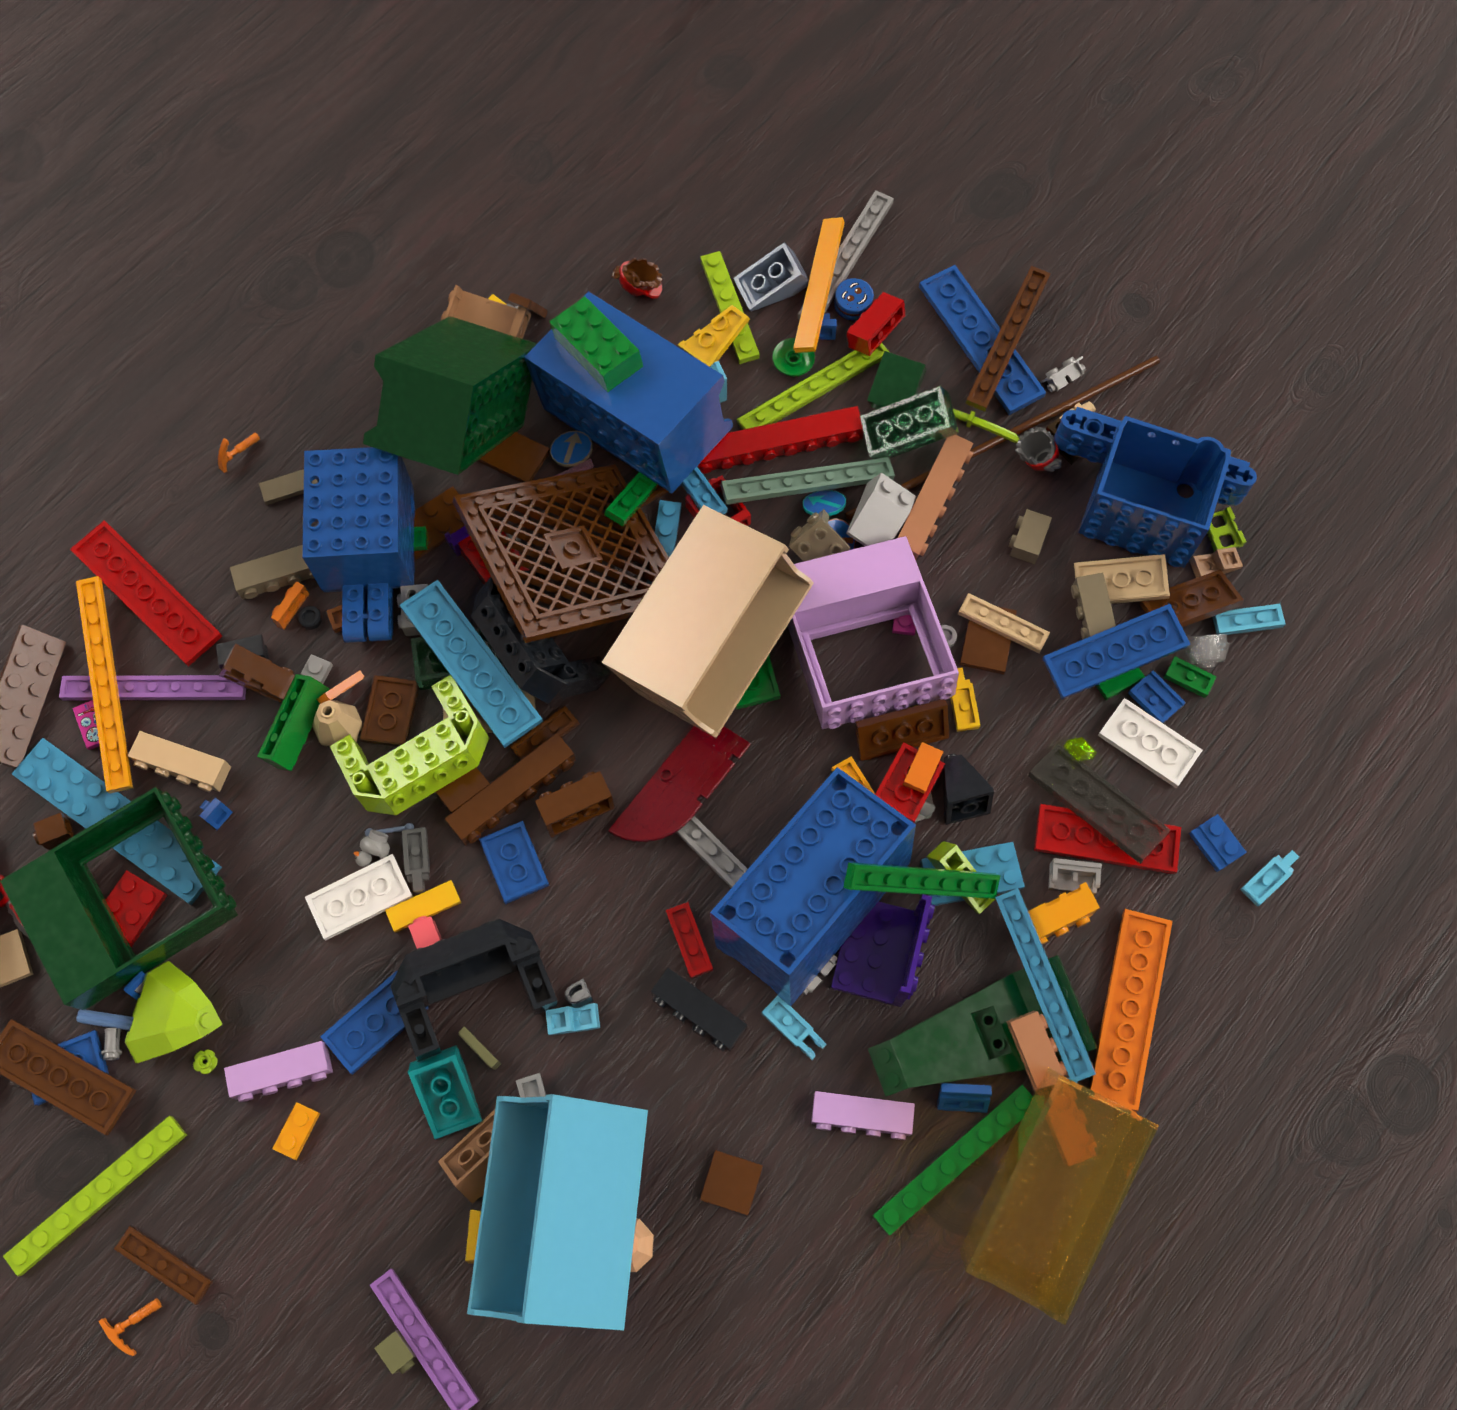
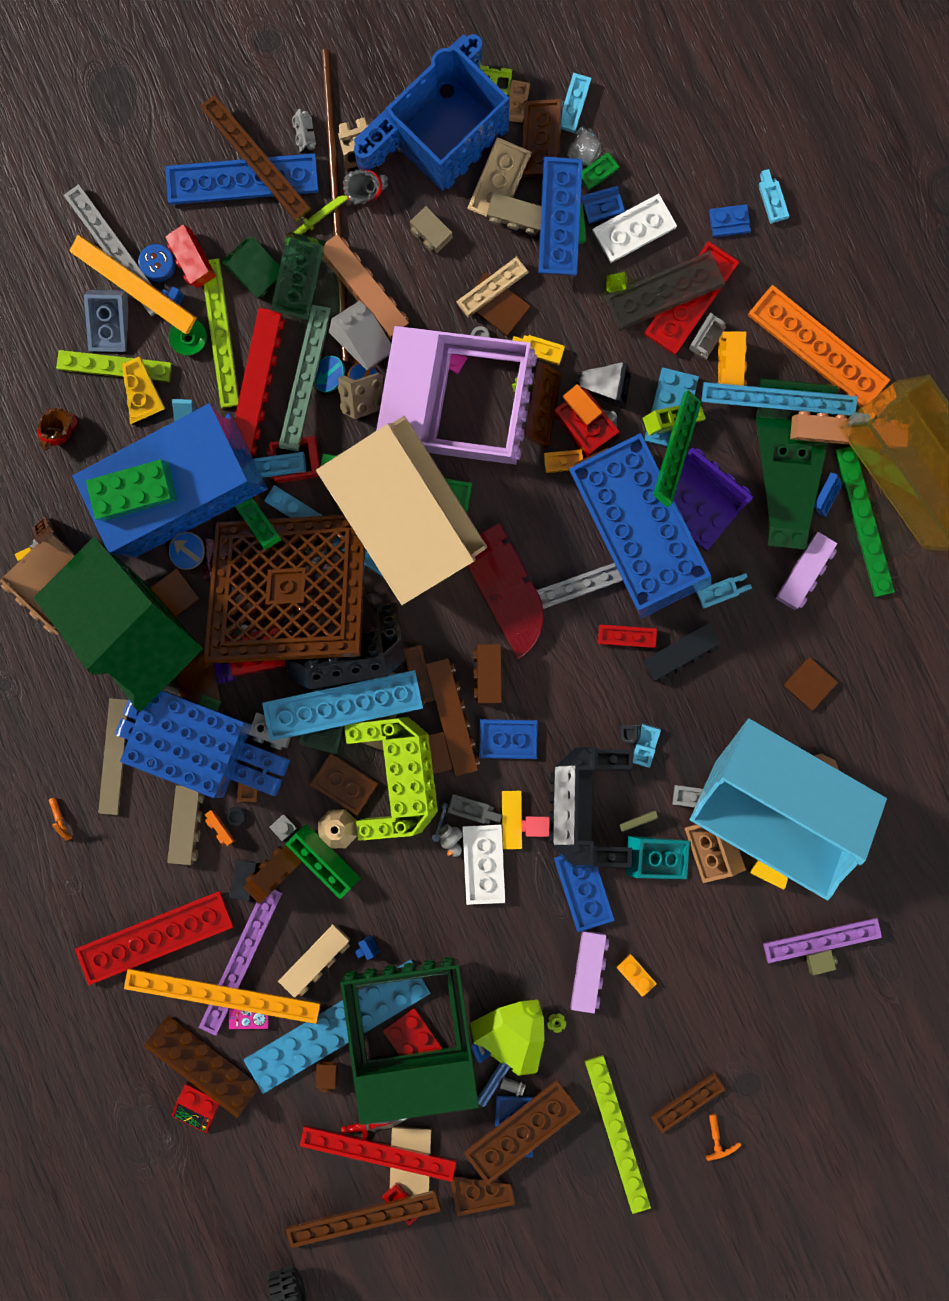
camera: 60 degrees left, 15 degrees up
(341, 687) = (311, 814): tile -> none

